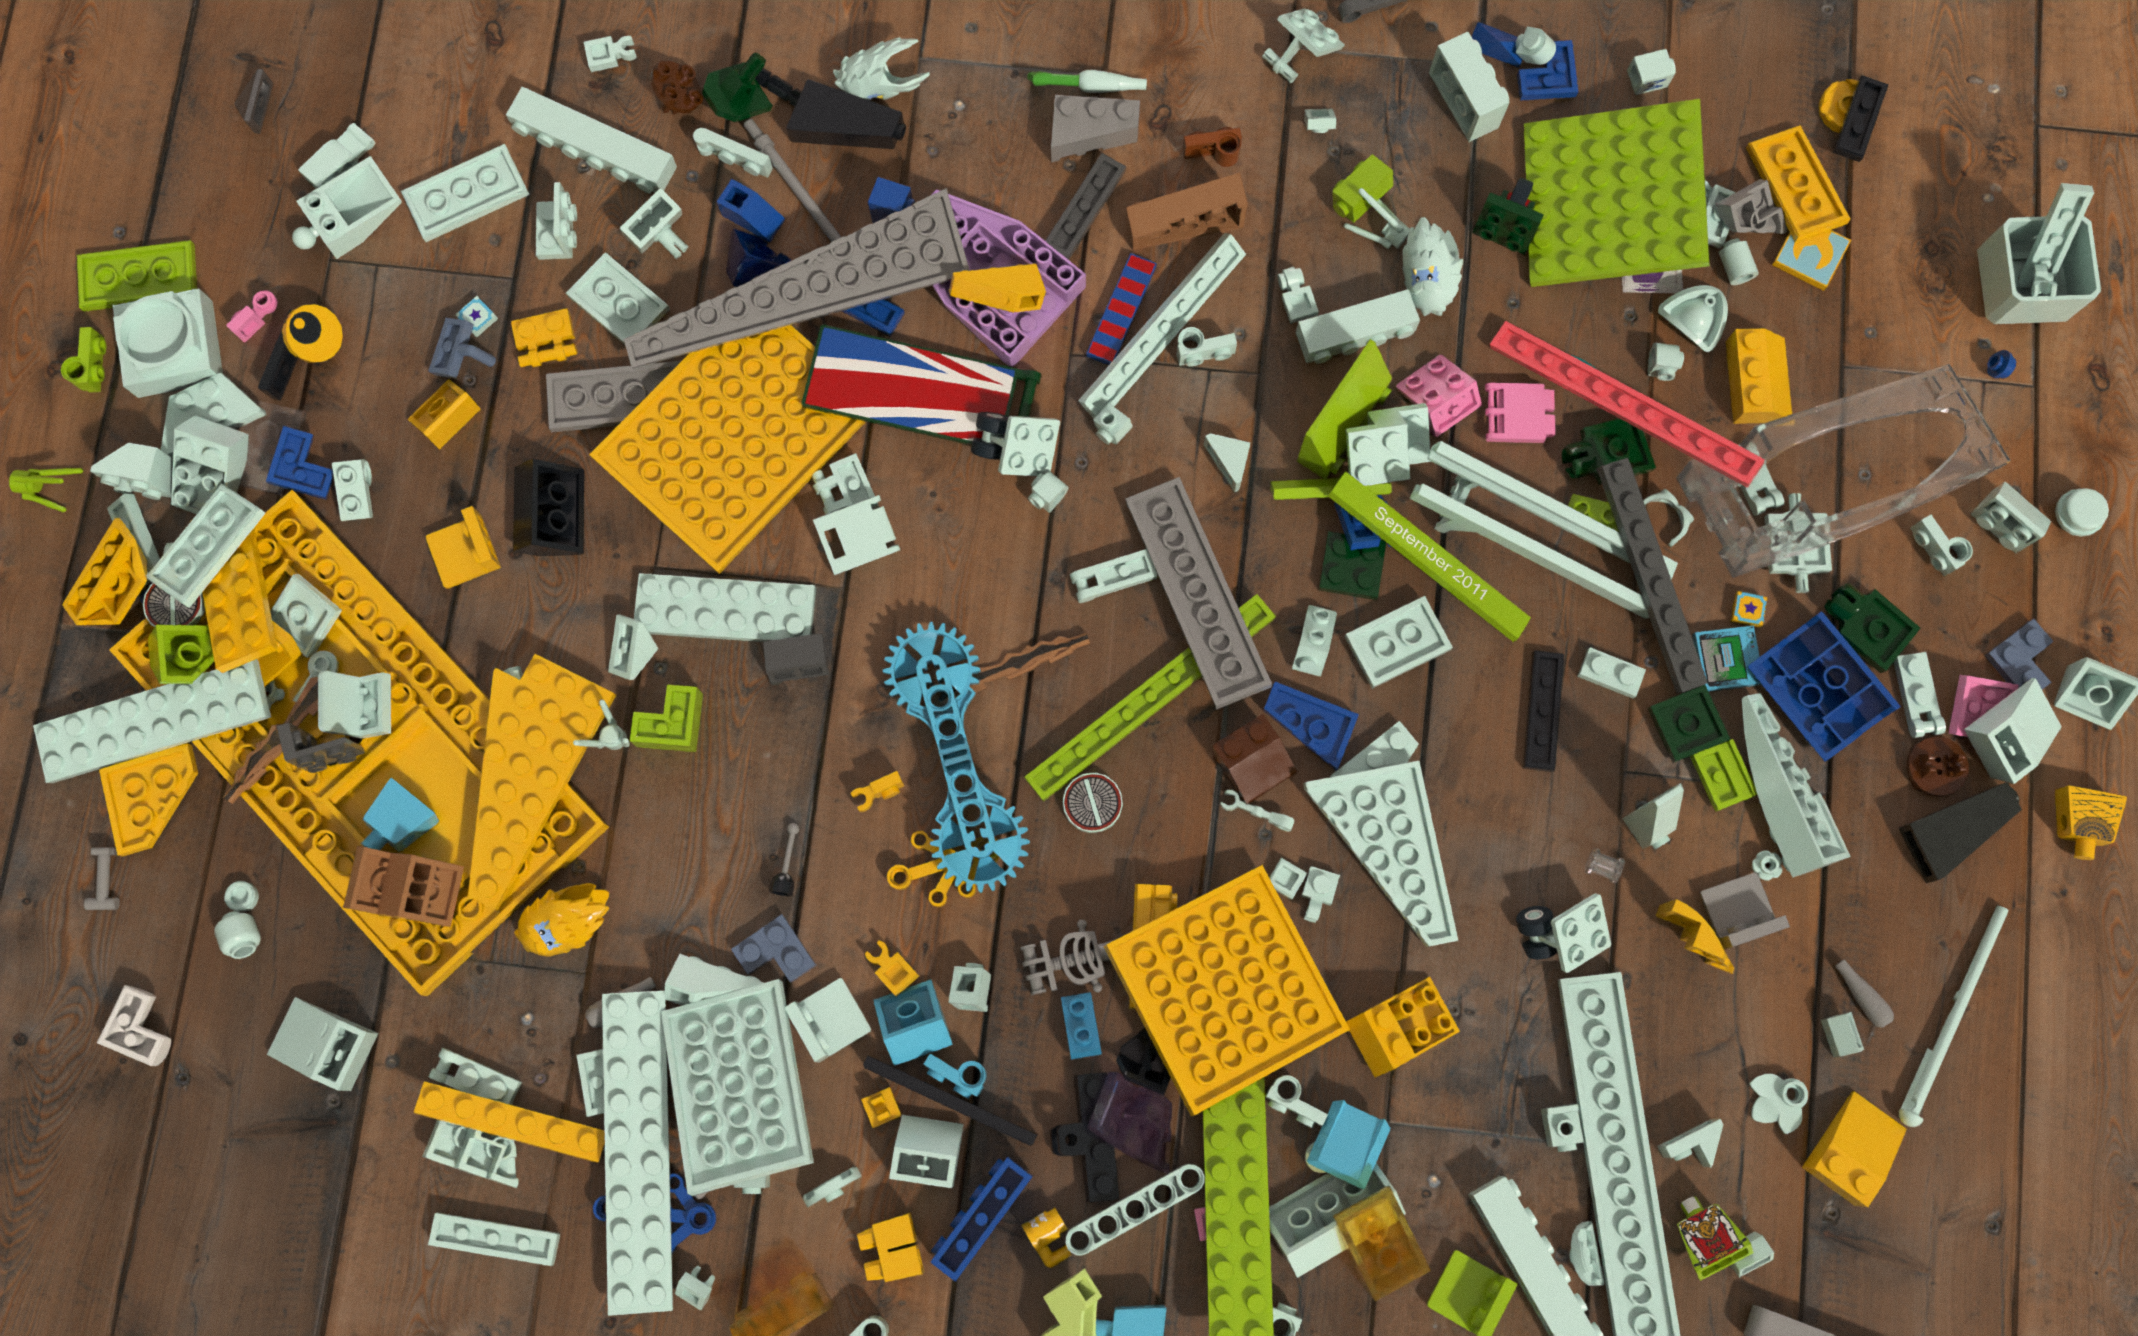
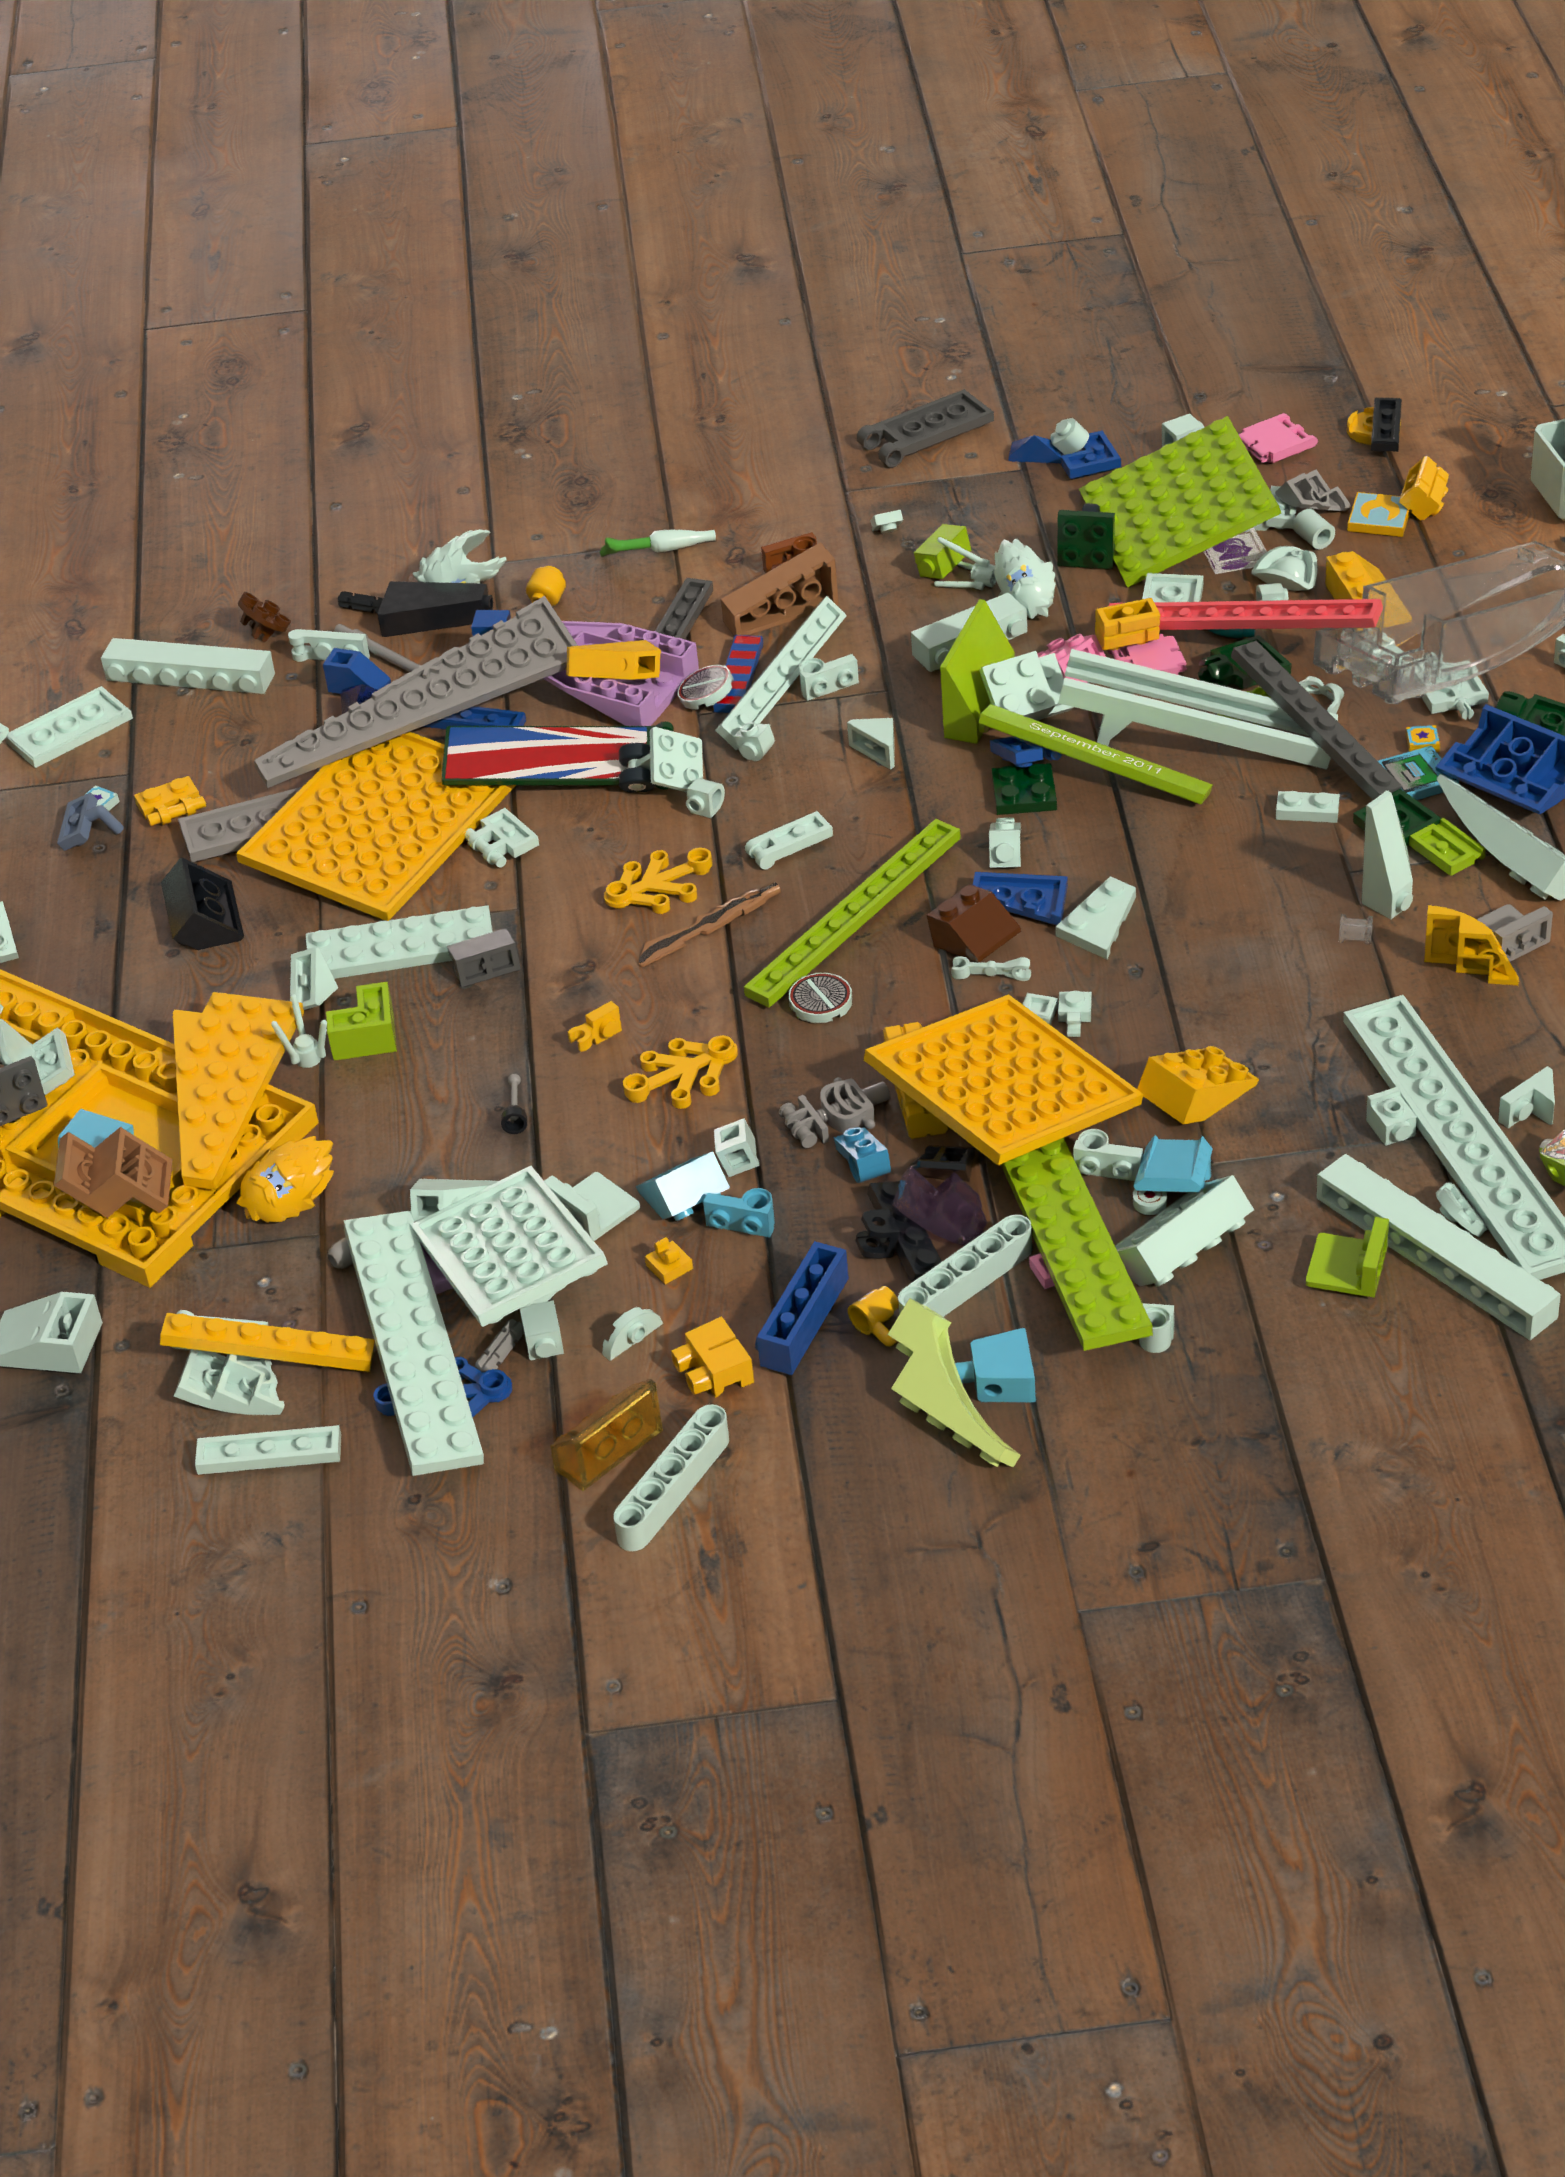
camera: 10 degrees left, 35 degrees down
(444, 413) = (83, 867): yellow slope -> none
(463, 550) = (123, 953): yellow bracket -> none
(555, 226) = (166, 728): light aqua bracket -> none
(592, 1081) = (349, 1303): light aqua plate -> none
(603, 52) = (189, 612): light aqua plate -> none
(617, 299) = (230, 760): light aqua plate -> none
(653, 224) = (263, 699): light aqua brick -> none
(694, 1290) = (502, 1439): light aqua tile -> none
(735, 92) = (324, 602): dark green piece -> none
(775, 942) = (518, 1157): sand blue plate -> none
(861, 533) = (527, 856): light aqua container -> none
(893, 971) = (650, 1155): yellow plate -> none
(926, 1151) = (728, 1281): light aqua slope -> none
(950, 1100) = (735, 1232): black tile -> none
(955, 756) = (641, 947): medium azure beam -> none
(961, 123) = (546, 582): none -> yellow head
(975, 595) = (623, 892): none -> yellow plant
(1084, 327) = (705, 686): none -> tile
(1092, 124) = (672, 560): light grey wedge -> none
(1198, 593) = (878, 825): light grey plate -> none
(1297, 301) = (900, 627): light aqua plate -> none
(1307, 31) = (850, 471): light aqua plate -> none
(1315, 488) = (963, 743): lime tile -> none
(1380, 1244) = (1233, 1224): clear yellow slope -> none
(1391, 832) = (1137, 947): light aqua wing -> none
(1398, 642) = (1088, 825): light aqua plate -> none
(1469, 86) = (1017, 468): light aqua brick -> none
(1511, 380) = (1127, 624): none -> yellow brick
(1543, 711) = (1251, 845): black tile -> none
(1571, 322) = (1173, 587): none -> light aqua plate
(1574, 934) = (1346, 970): light aqua plate -> none
(1742, 103) = (1274, 440): none -> bright pink plate
(1767, 873) = (1519, 898): light aqua plate -> none
(1798, 183) = (1354, 475): yellow tile -> none
(1866, 237) = (1424, 489): none -> yellow brick

